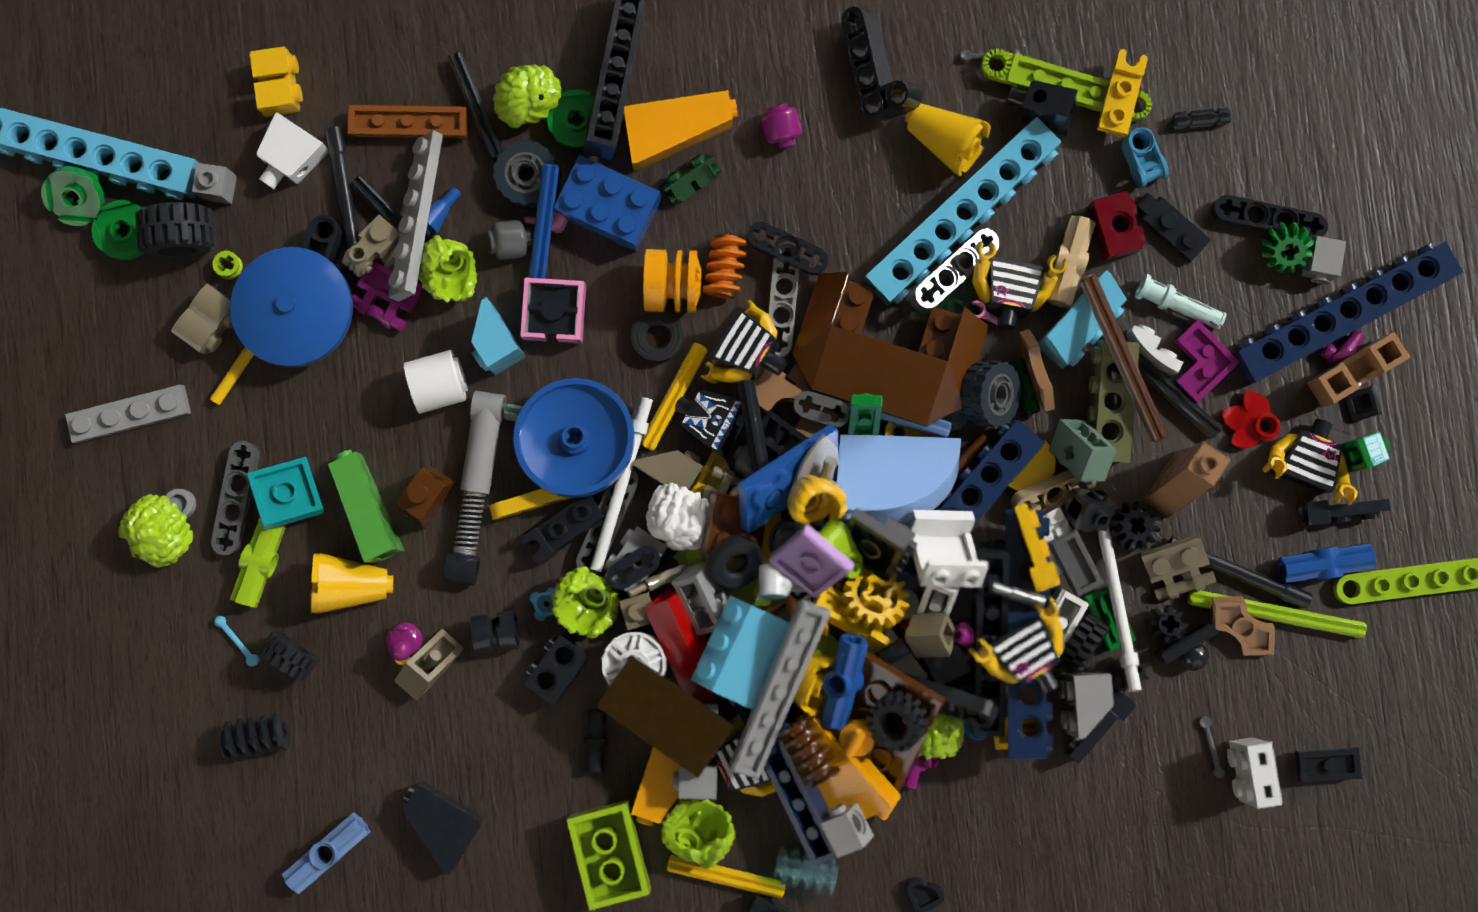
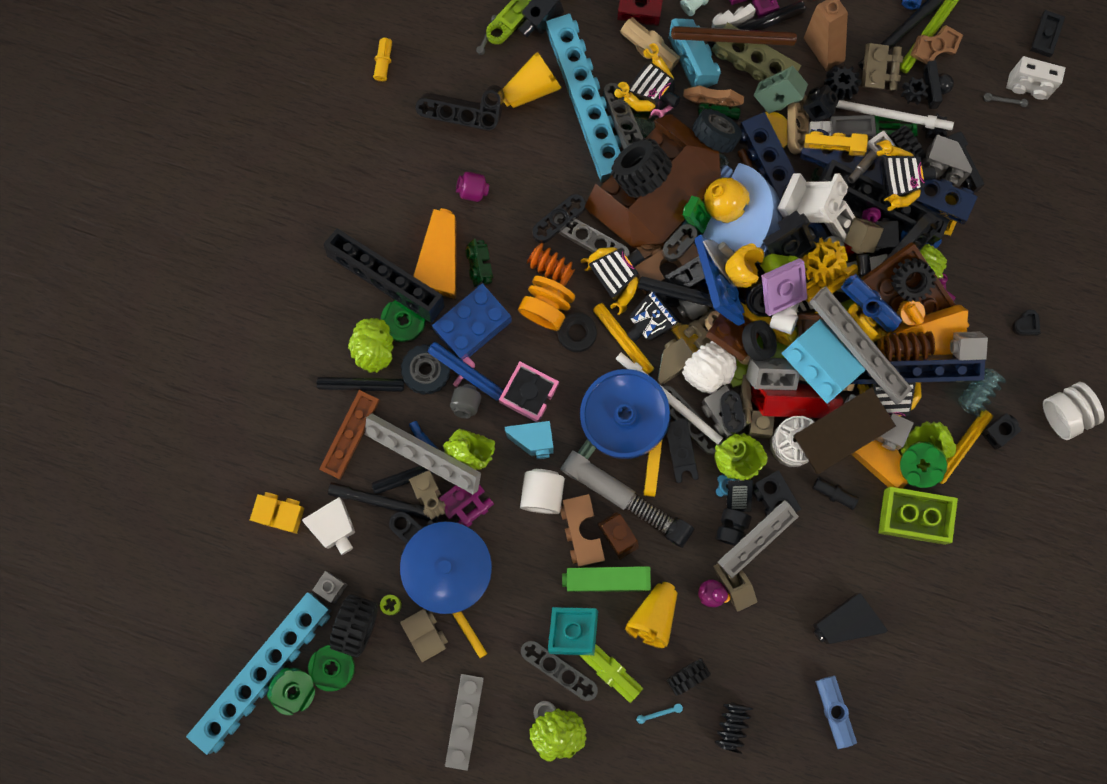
camera: 65 degrees left, 5 degrees down
(390, 464) = (585, 551): none -> medium nougat arch
(488, 667) = (758, 539): none -> light grey plate
(538, 623) = (740, 495): none -> black sticker
(685, 839) = (923, 478): none -> green plate
(890, 317) = (641, 168): none -> black tyre
(901, 442) = (726, 199): none -> yellow cylinder

